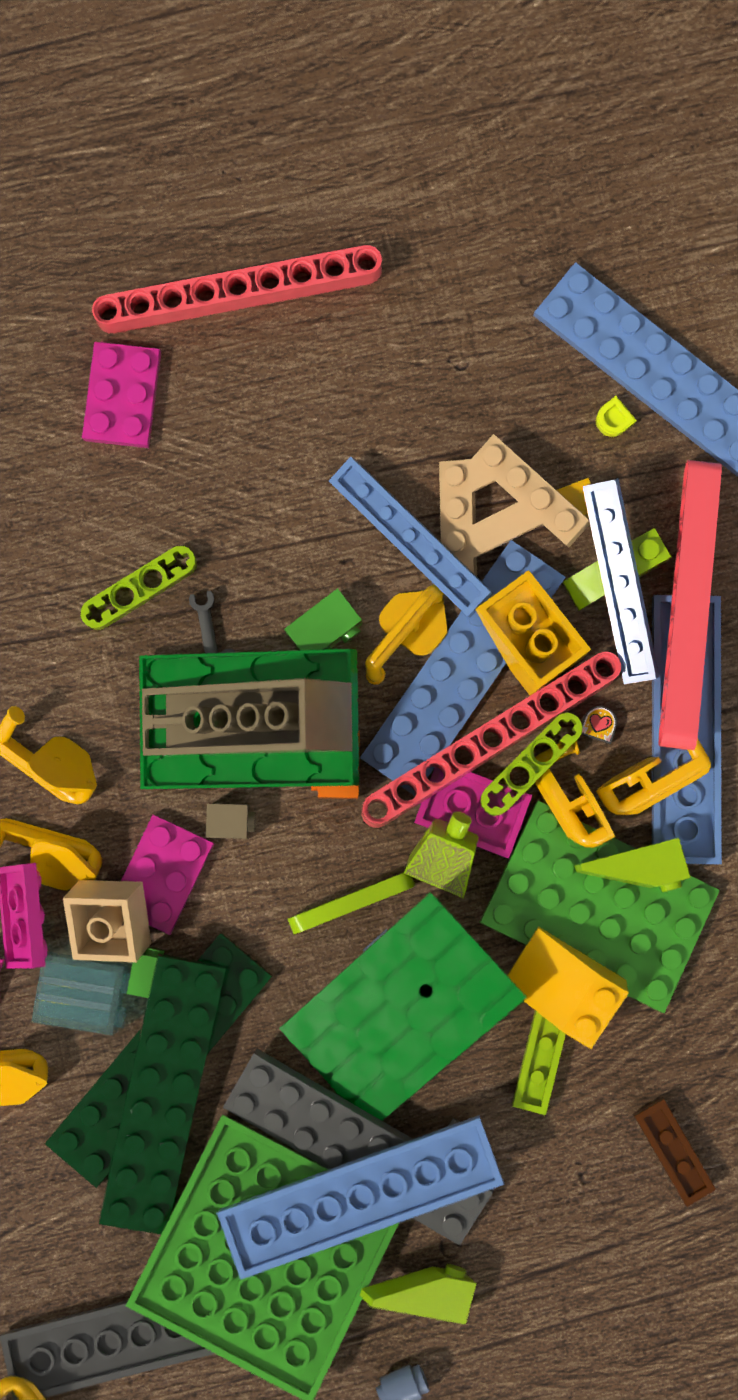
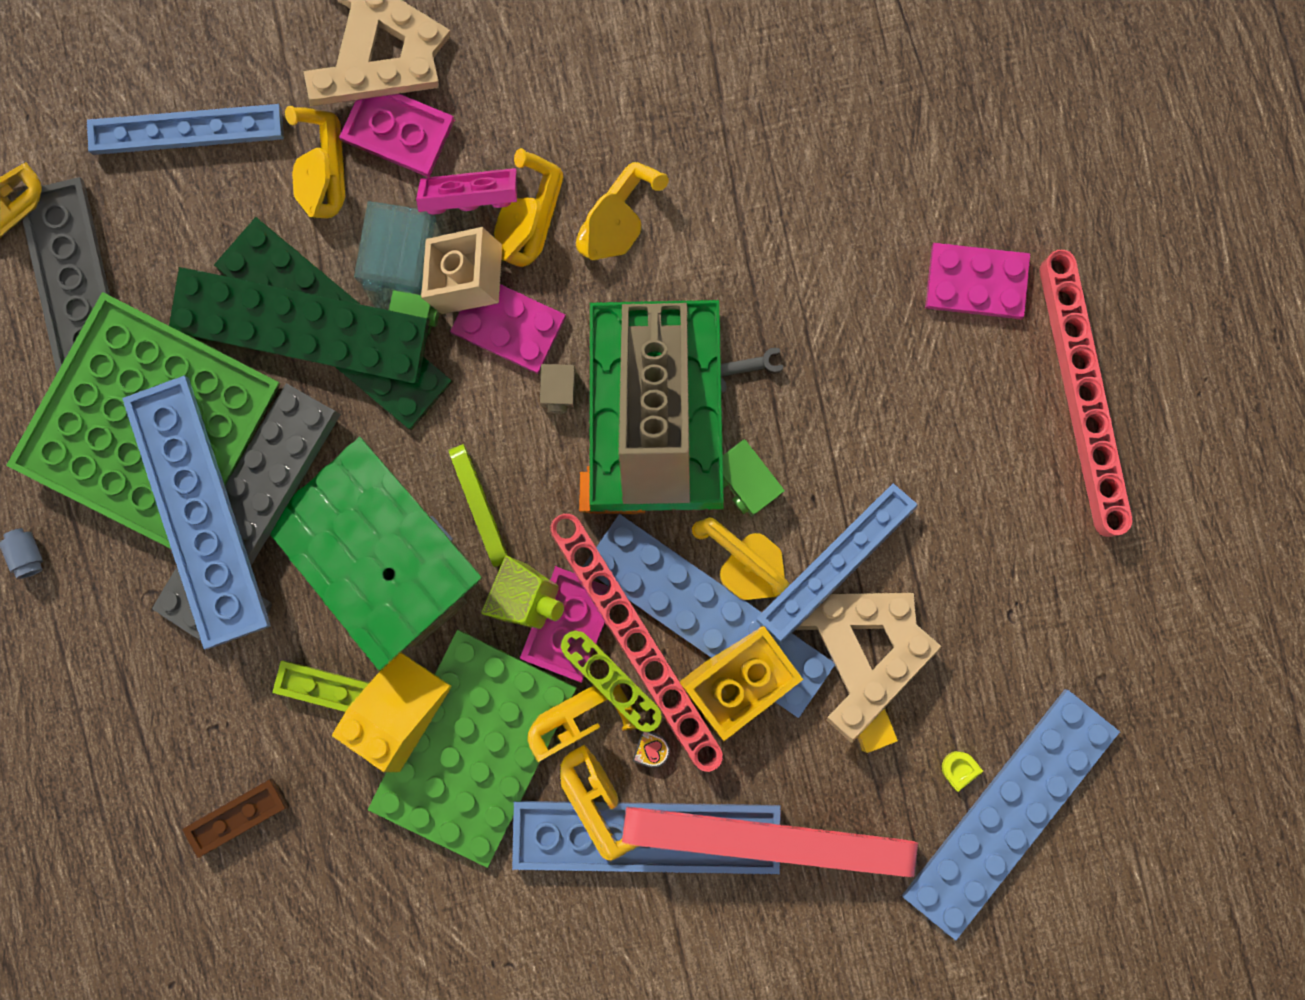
camera: 90 degrees right, 0 degrees up
(136, 583) = (781, 302): lime beam -> none
(426, 1293) = (106, 575): lime slope -> none
(587, 584) = (806, 769): lime slope -> none
(621, 581) = (792, 771): plate -> none
(647, 866) = (509, 798): lime slope -> none

